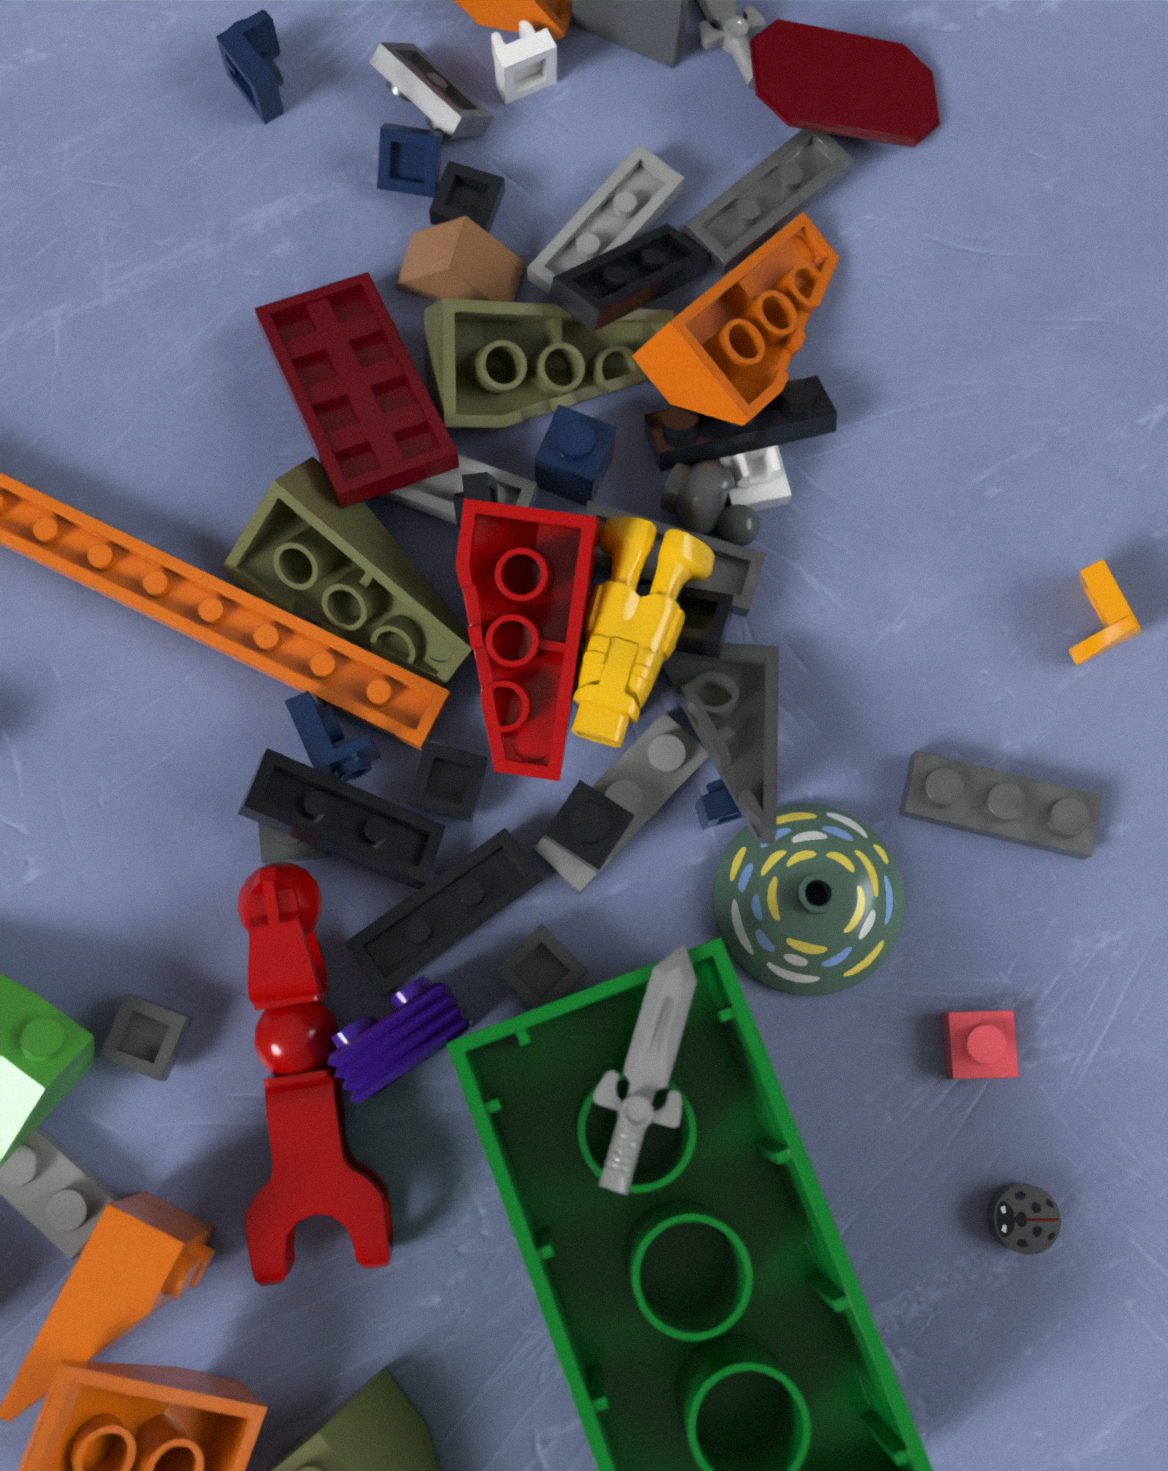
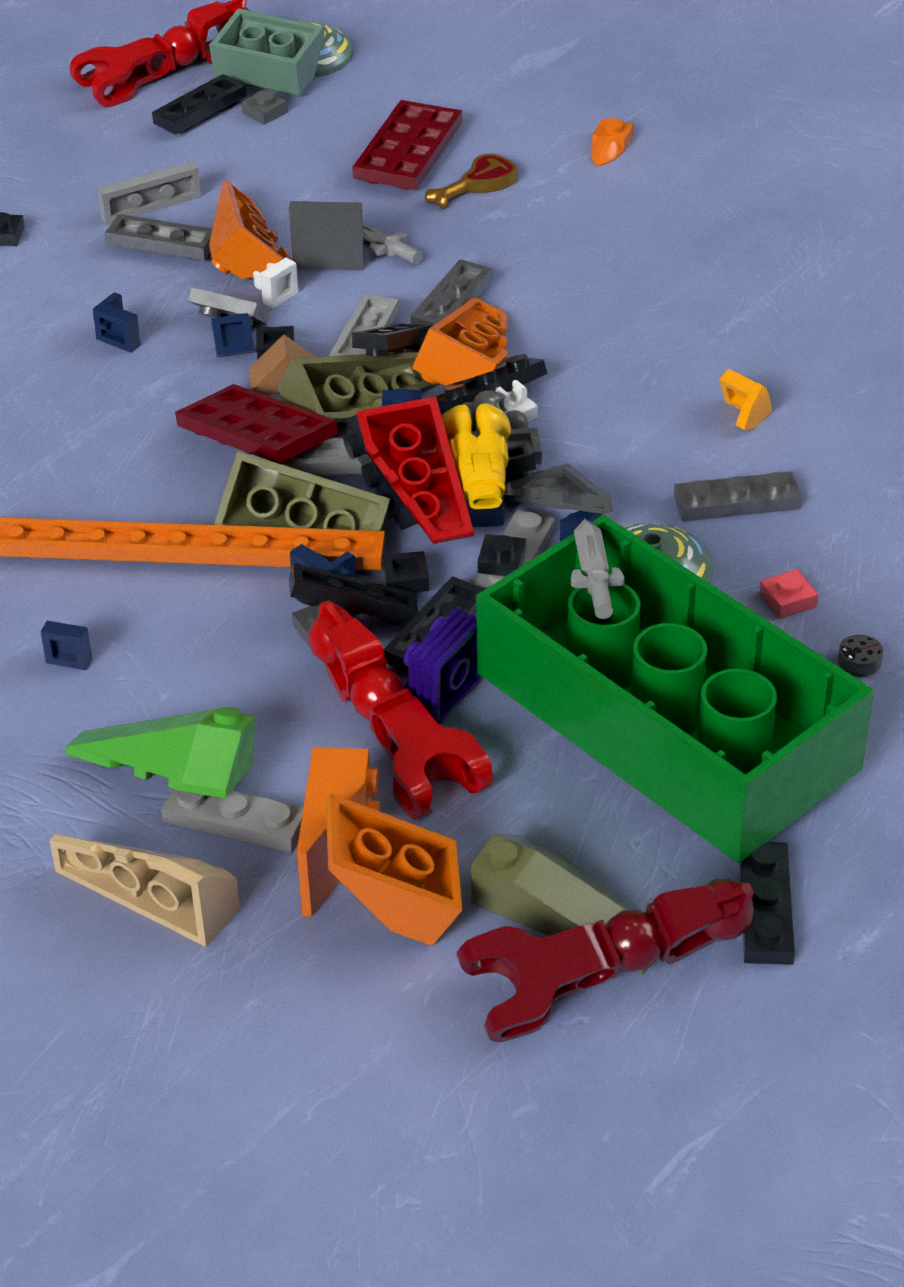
camera: 15 degrees left, 35 degrees down
(146, 1037) = (282, 731): dark grey plate -> none
(844, 83) = (469, 240): dark red shield -> none

